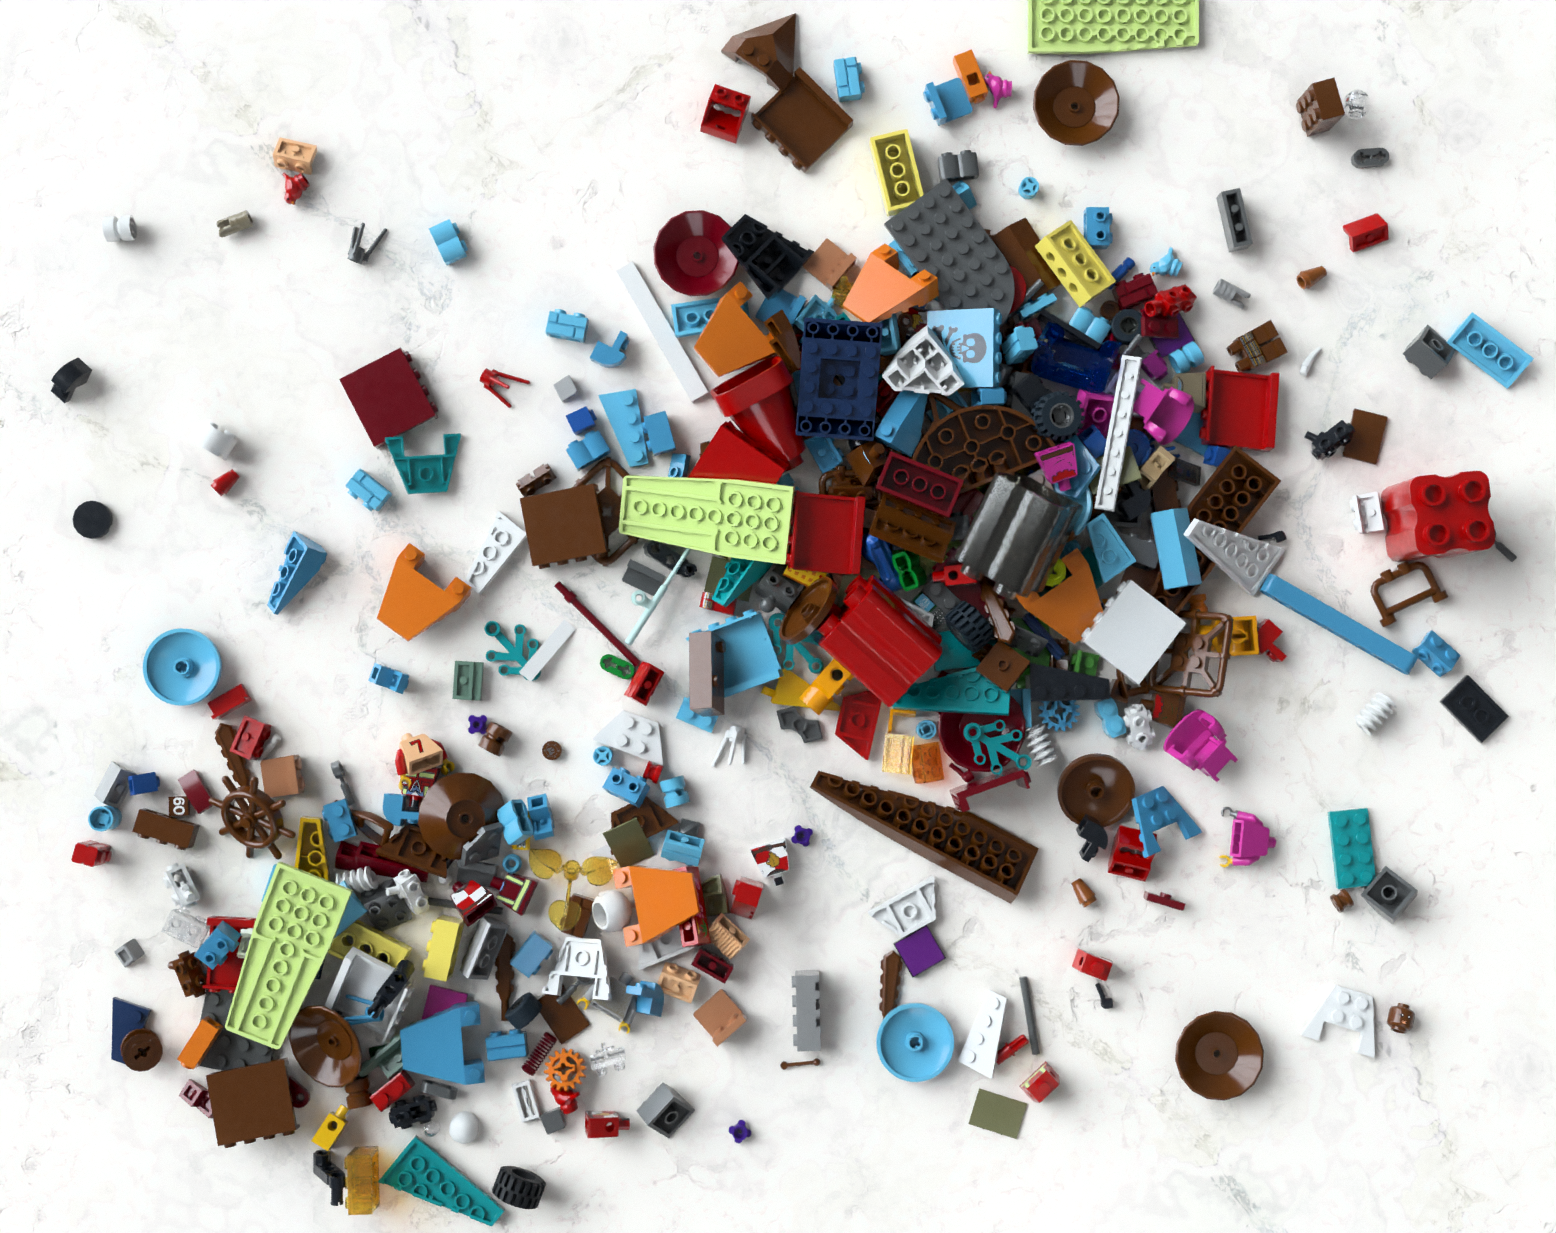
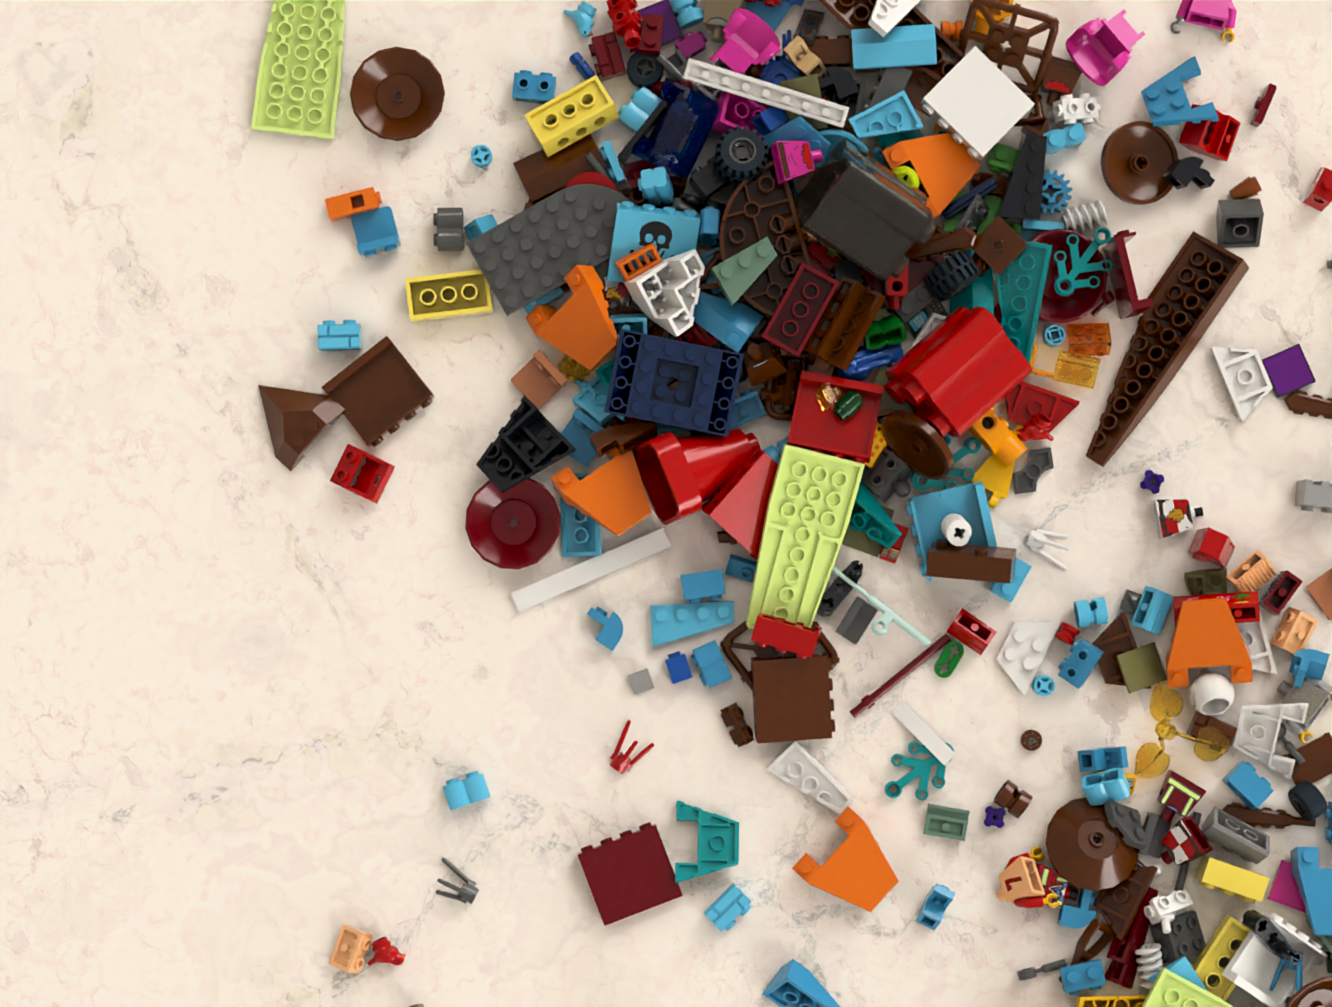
camera: 80 degrees left, 0 degrees up
(507, 867) = (1154, 796): medium azure plate -> none
(567, 326) = (573, 672): medium azure brick -> none
(619, 512) = (786, 635): none -> red wedge
(735, 657) = (957, 537): none -> white piece
(837, 543) = (848, 405): none -> dark green brick
(837, 721) = (1036, 429): none -> red animal
(844, 523) = (827, 396): none -> clear yellow tile
(933, 328) = (635, 256): none -> orange slope
(951, 428) = (742, 269): none -> sand green wedge
(998, 87) = (367, 175): dark pink animal -> none
(1051, 890) = (1239, 223): none -> dark grey slope
(1109, 309) = (623, 86): reddish brown tile -> none

